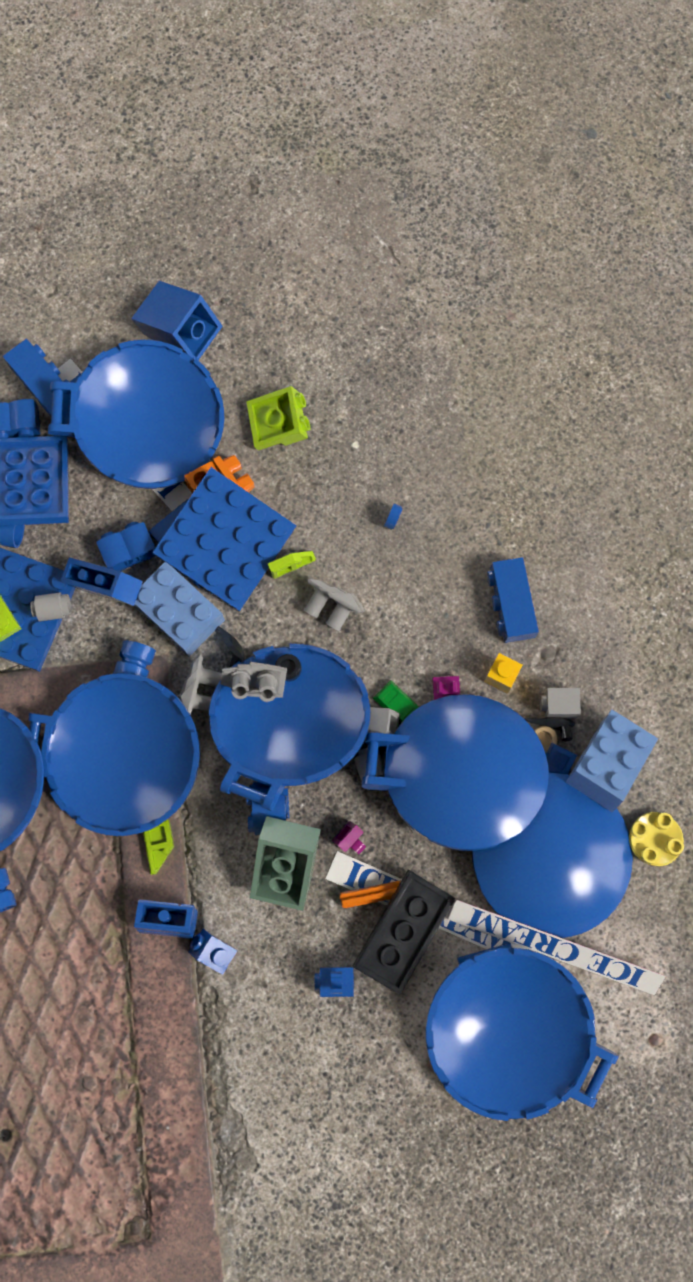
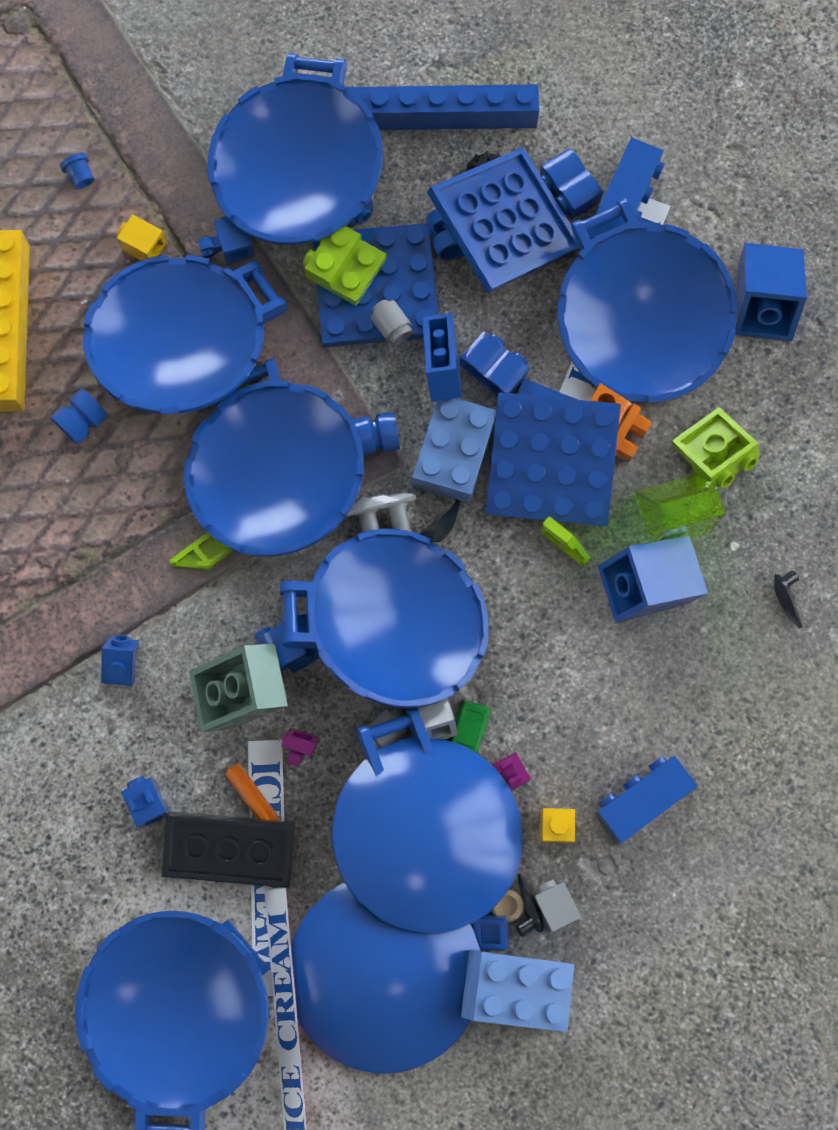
camera: 60 degrees right, 0 degrees up
(166, 919) = (129, 597): blue brick -> none
(255, 680) = (417, 565): light grey connector -> none
(292, 664) = (449, 593): black tile -> none
(310, 466) = (680, 508): none -> clear neon green slope
(345, 602) = (552, 617): light grey connector -> none
(352, 514) = (652, 578): none -> slope
(393, 516) = (672, 624): blue tile -> none
(411, 427) = (785, 596): none -> black bar
(656, 838) = (457, 1082): light yellow dish -> none

